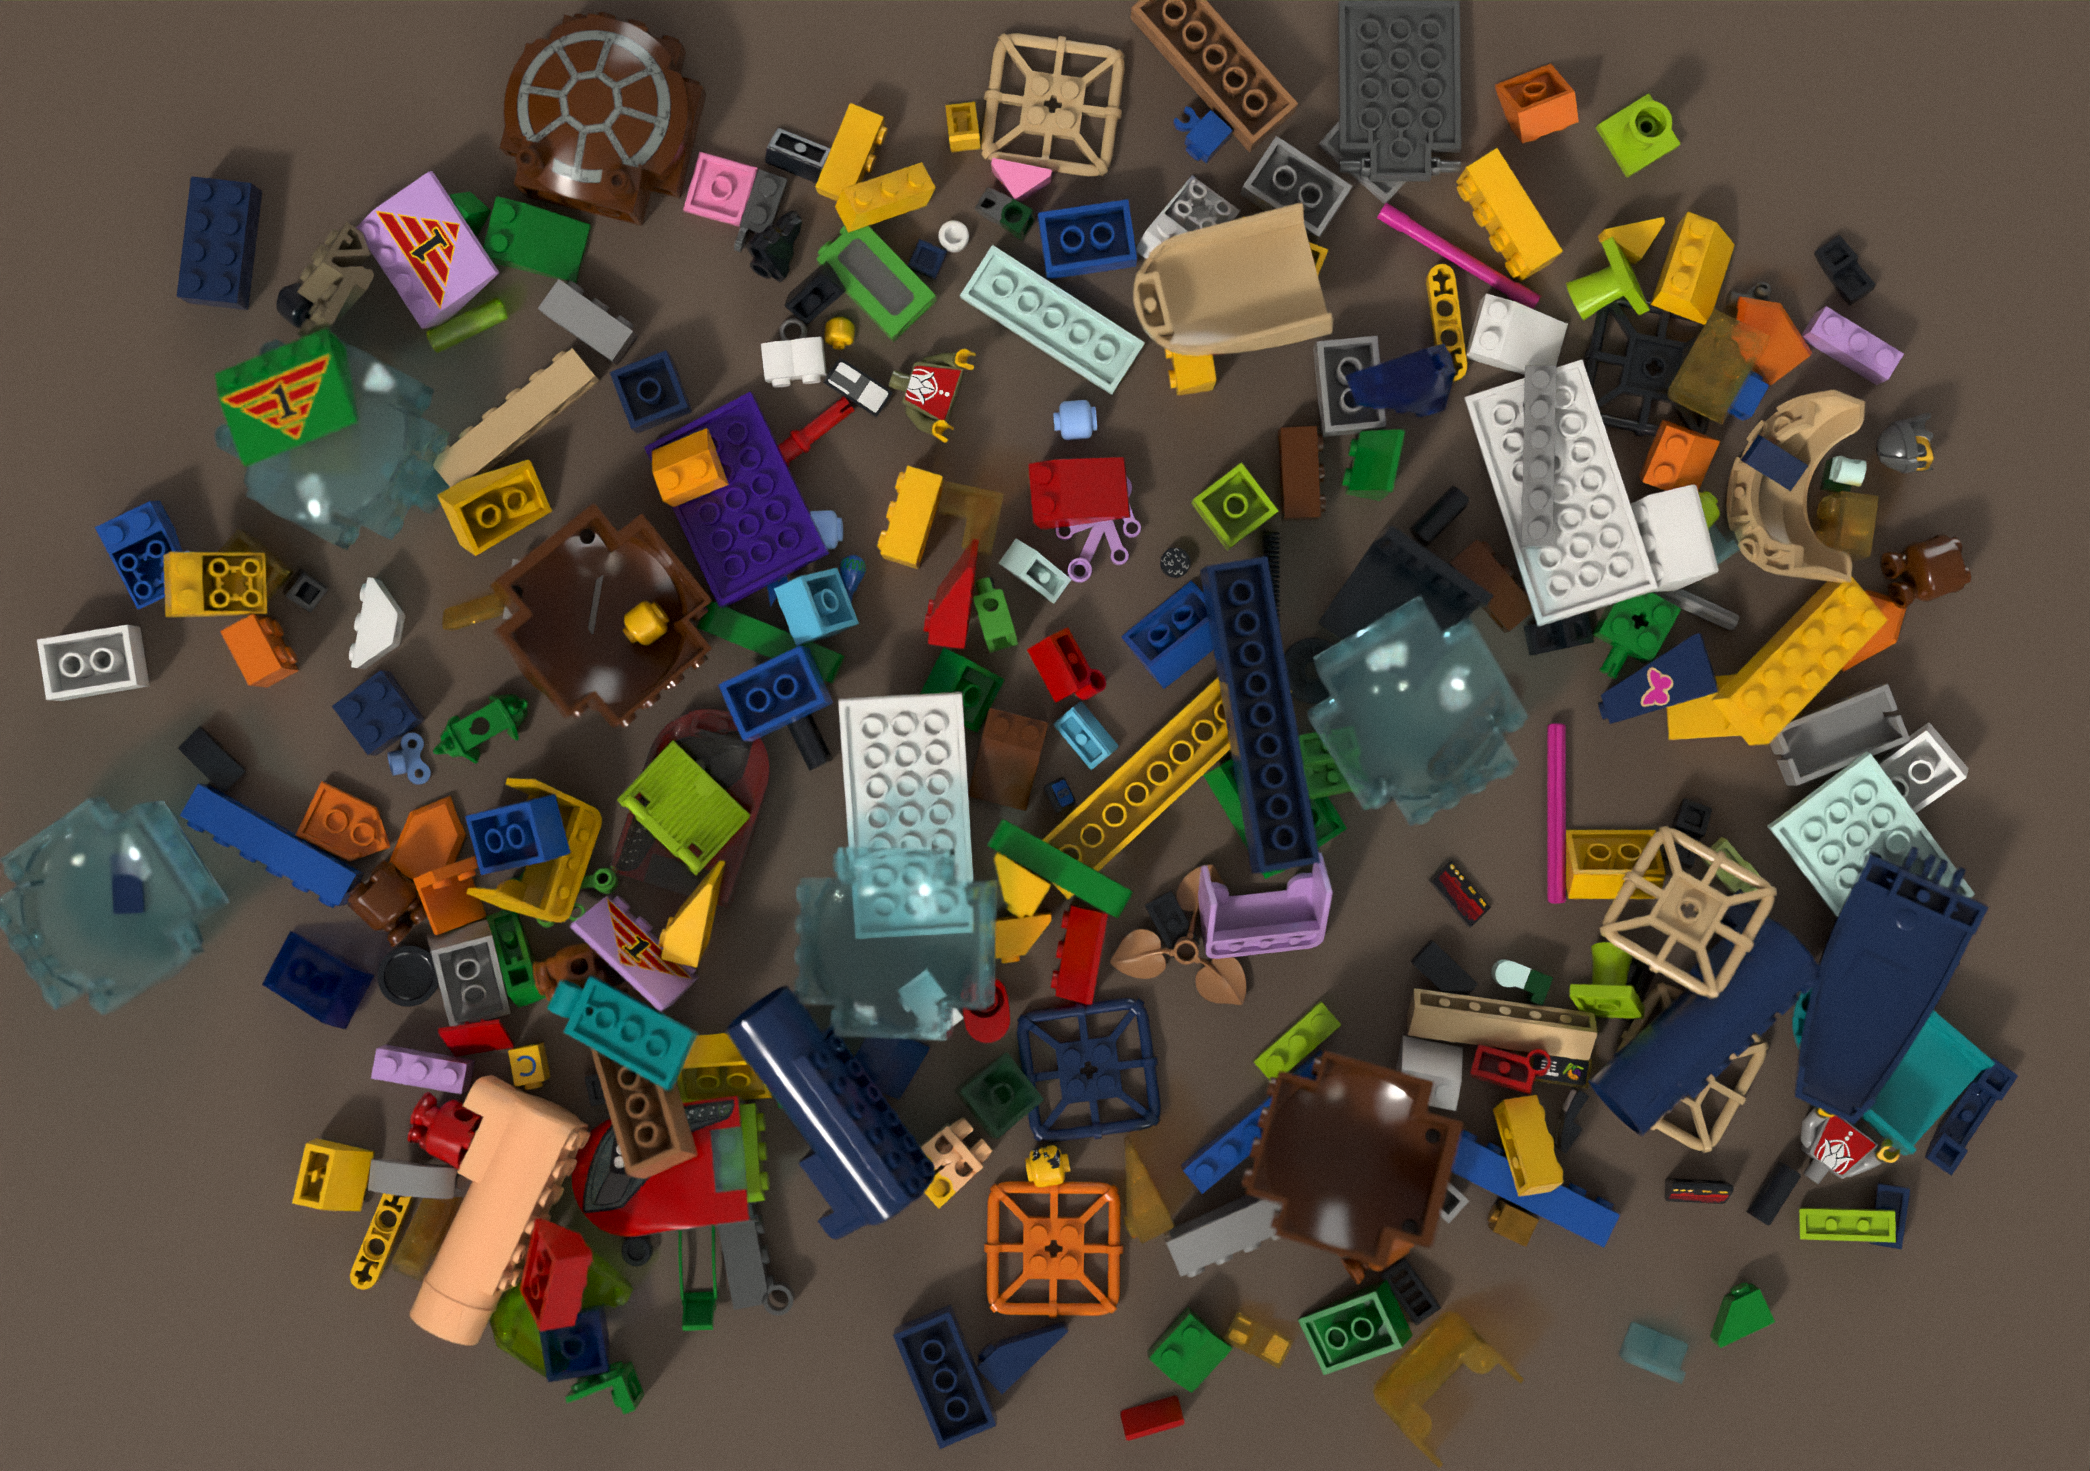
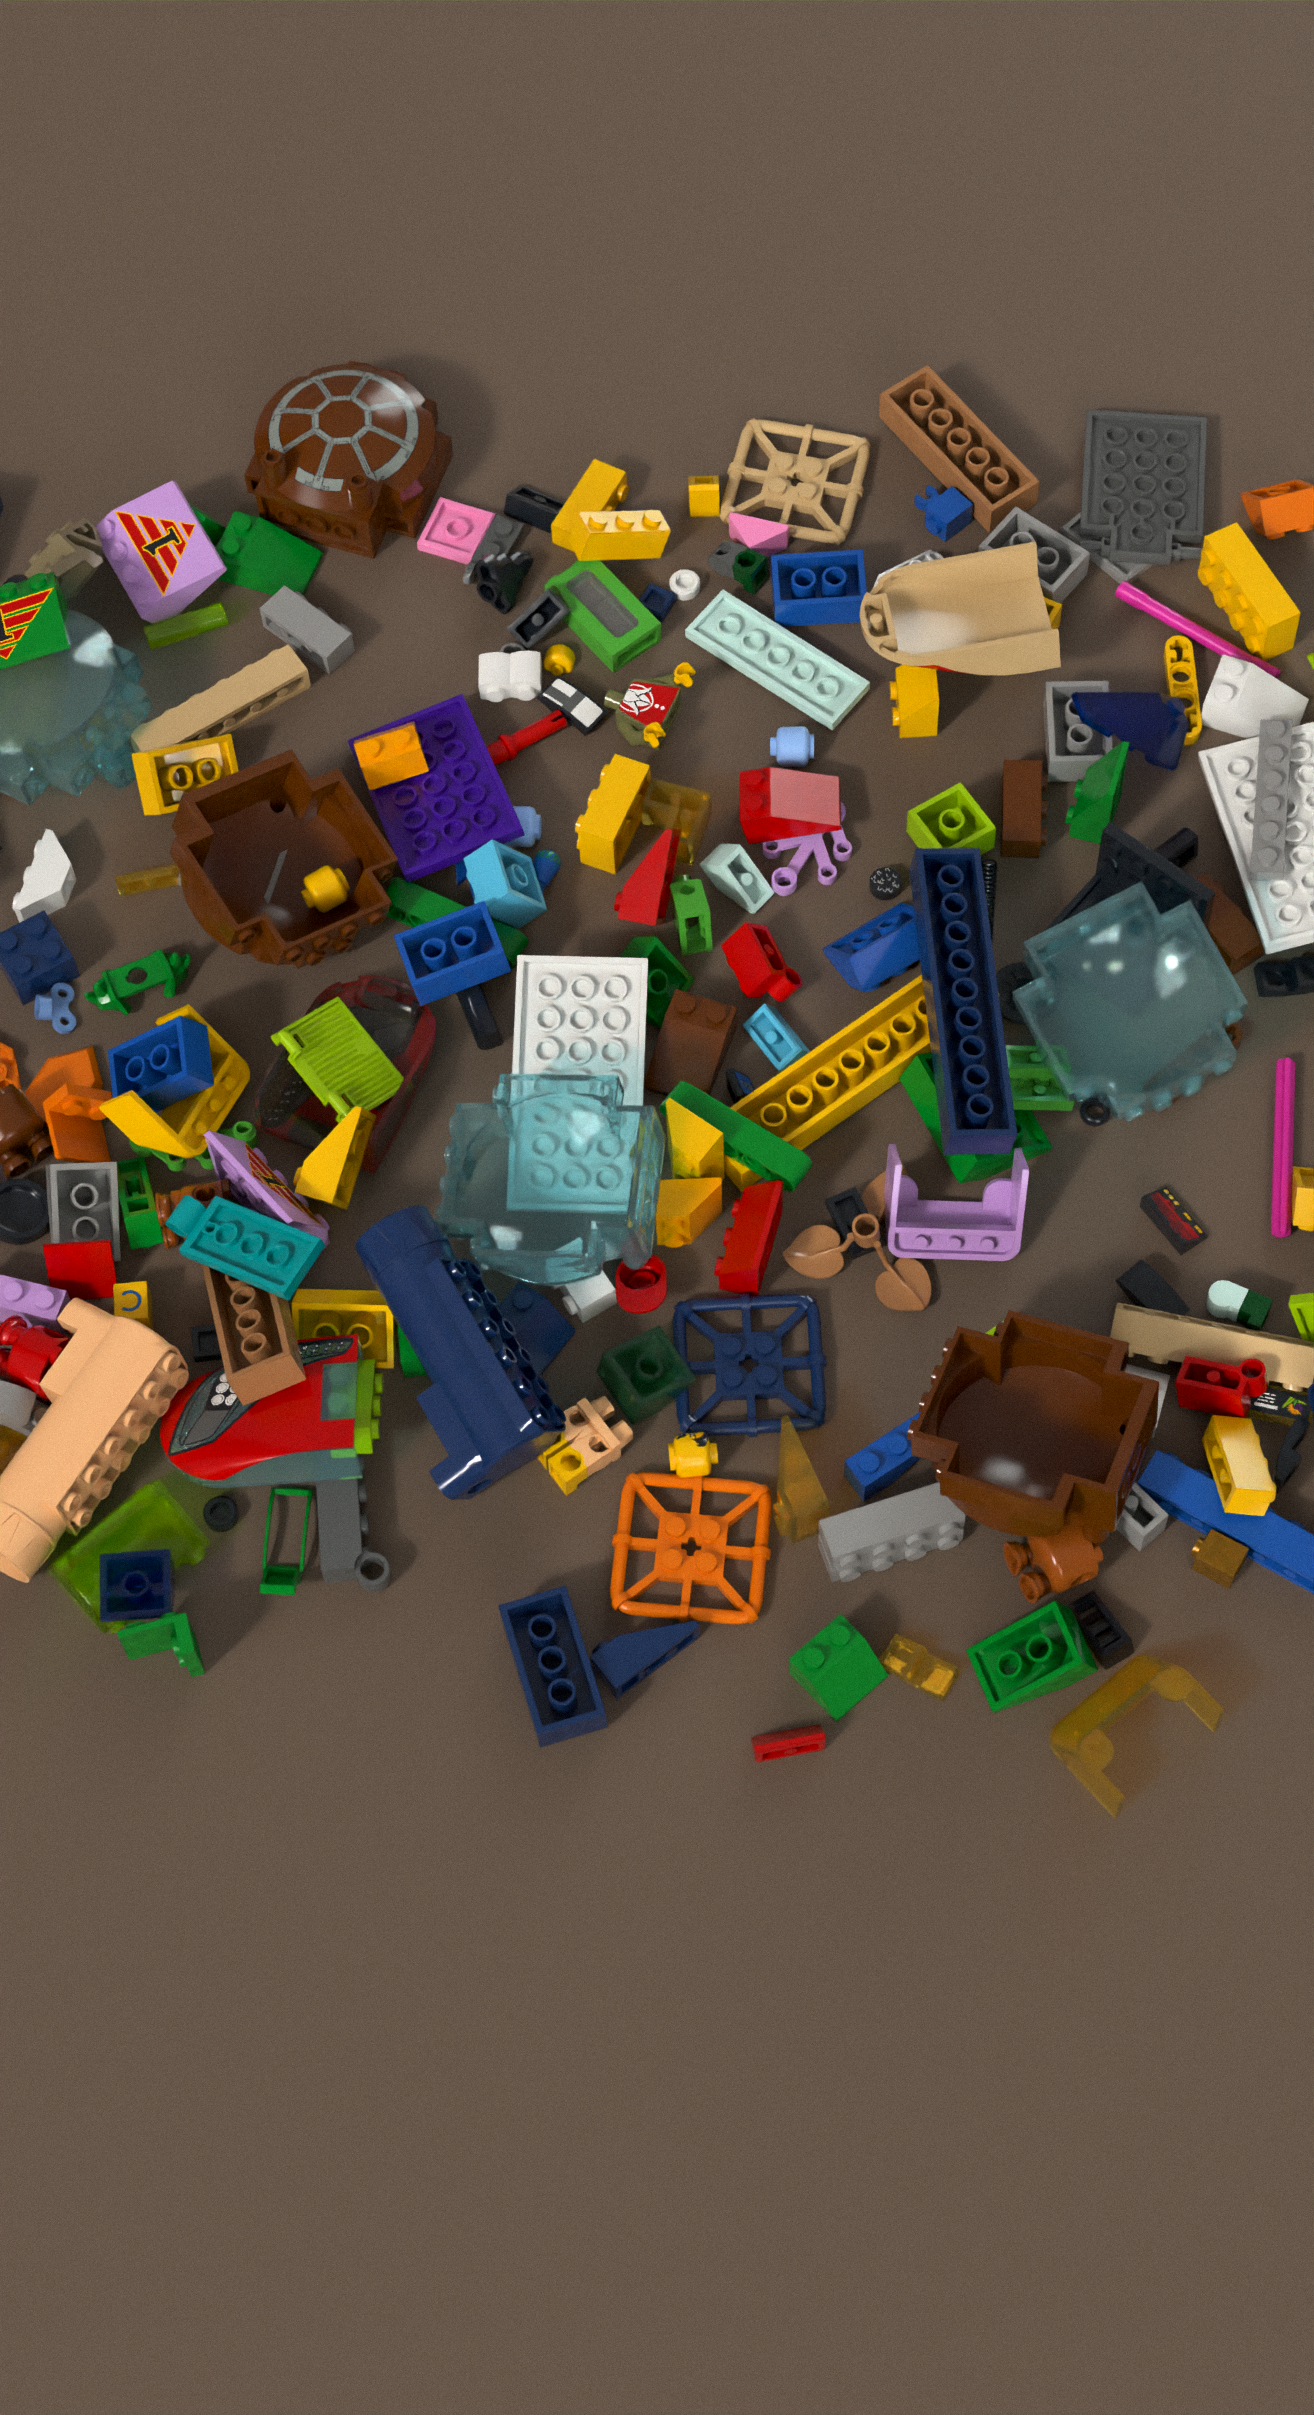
camera: 10 degrees right, 25 degrees down
(555, 1275) = (130, 1493): red slope -> none
(651, 392) = (362, 689): dark blue brick -> none

